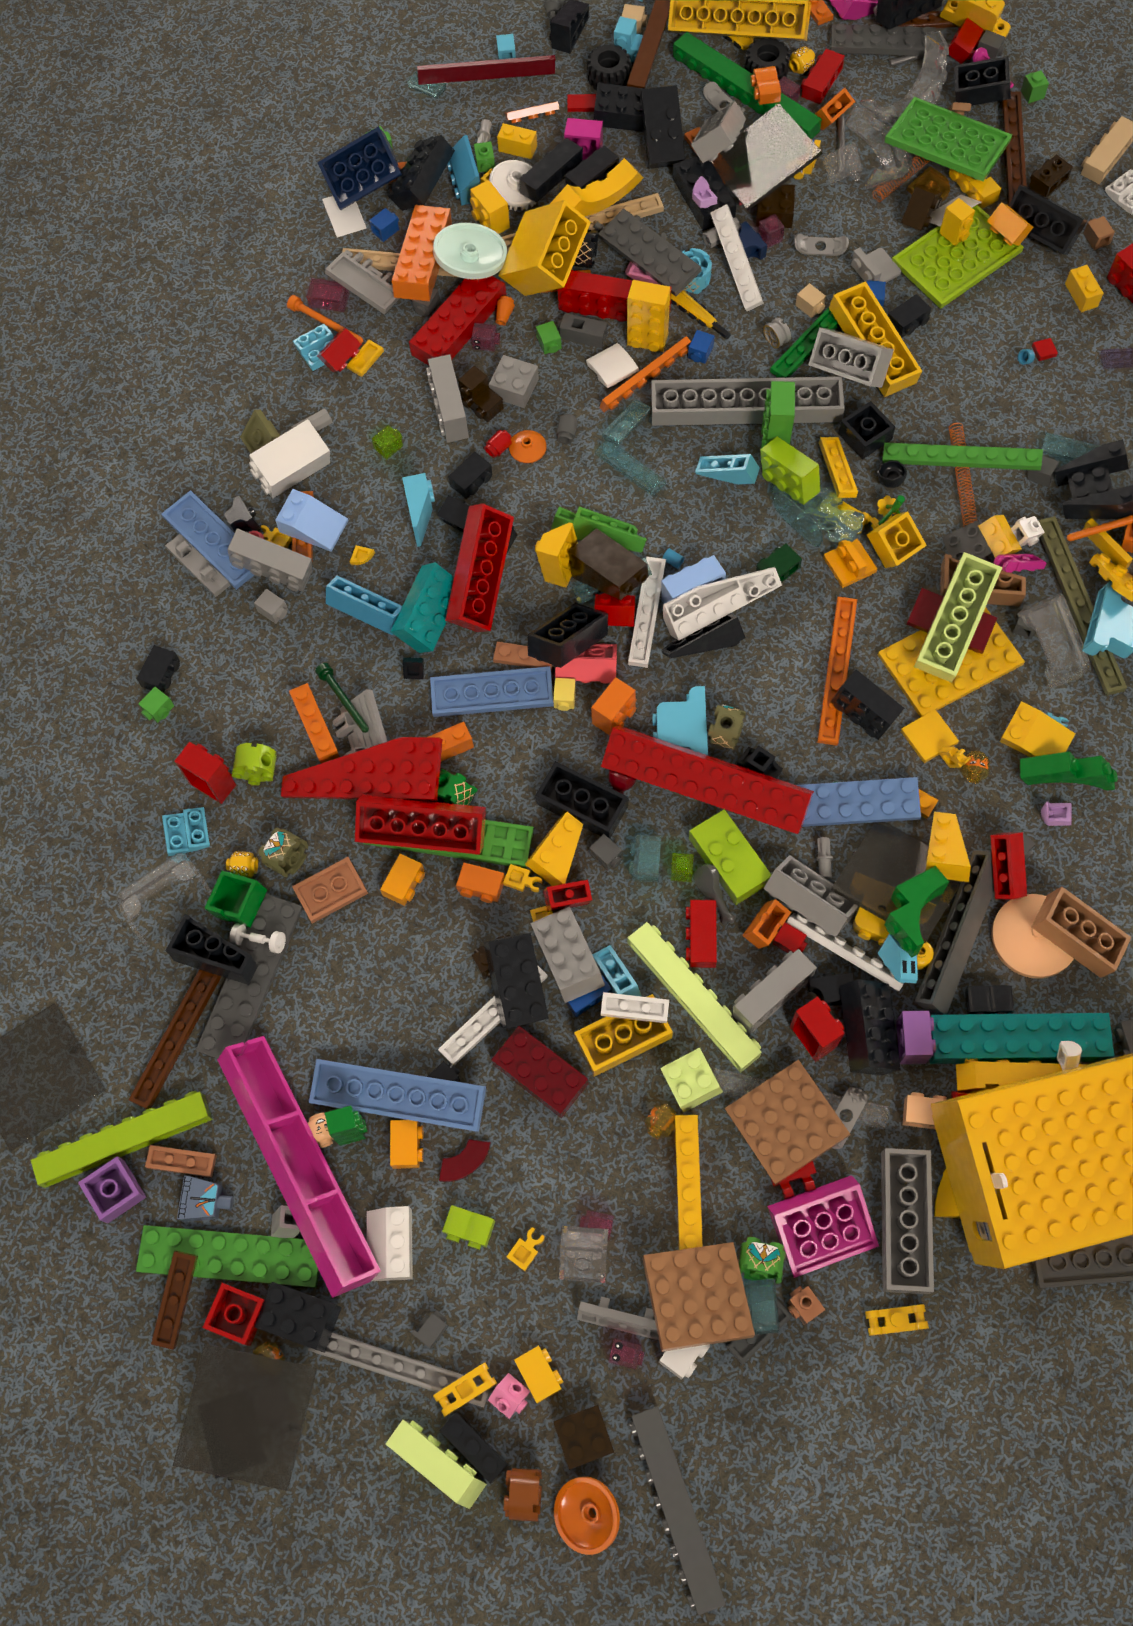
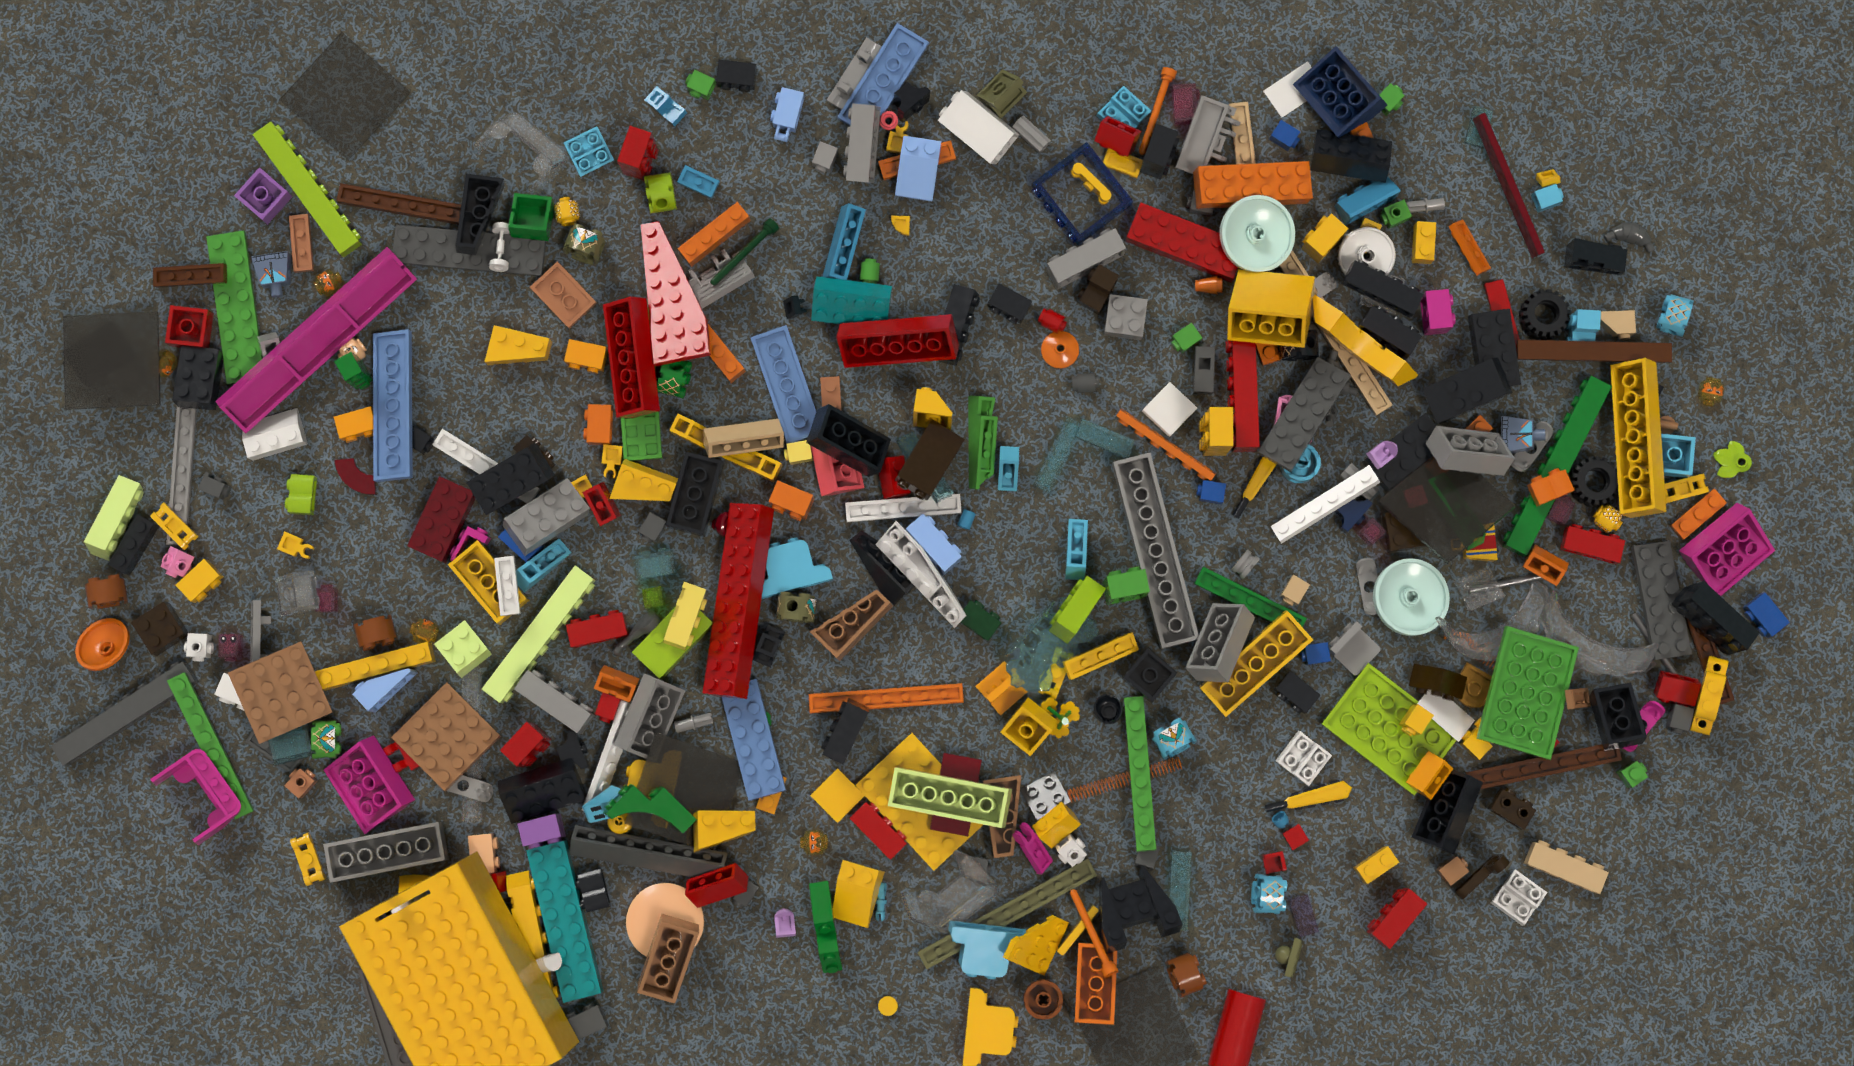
camera: 75 degrees right, 15 degrees up
(164, 747) = (665, 106): none -> dark azure slope
(213, 631) = (787, 112): none -> light blue brick
(235, 1140) = (328, 282): none -> clear yellow head
(255, 729) = (698, 182): none -> dark azure plate
(366, 313) = (1160, 152): none -> black brick
(370, 948) = (513, 346): none -> yellow wedge
(375, 370) = (1105, 174): none -> clear blue window
(377, 374) = (1091, 183): none -> yellow plate
(387, 442) = (1028, 213): clear neon green brick -> none
(398, 590) = (869, 271): none -> bright green brick
(419, 499) = (962, 263): medium azure slope -> none
(485, 337) = (1172, 275): clear pink brick -> none
(488, 44) = (1548, 178): none -> yellow tile
(520, 784) = (751, 461): none -> yellow arch
(536, 737) = (743, 438): none -> tan brick
(566, 1037) = (464, 536): none -> dark pink bracket
(607, 1393) = (199, 646): none -> white brick
(632, 509) = (1008, 468): none -> medium azure slope
(651, 1174) = (375, 632): none -> dark orange brick
(709, 103) = (1520, 434): none -> sand blue torso
(712, 826) = (685, 616): none -> light yellow wedge
(719, 1186) = (378, 691): none -> light blue slope
(738, 1405) = (207, 736): none -> bright green plate
(759, 685) = (852, 624): none -> medium nougat wedge
(792, 1411) = (200, 767): none -> dark pink windscreen
(839, 211) = (1411, 597): none -> light aqua dish
(933, 421) = (1174, 738): none -> medium azure brick
(953, 757) = (817, 820): yellow plate -> none
(970, 328) = (1303, 758): none -> white slope
(974, 702) = (879, 829): none -> red brick
(1008, 320) = (1323, 794): none -> yellow sword
(1066, 367) = (1274, 862): none -> red panel
(1098, 375) = (1268, 894): none -> medium azure brick
(1099, 202) = (1494, 864): none -> dark brown beam

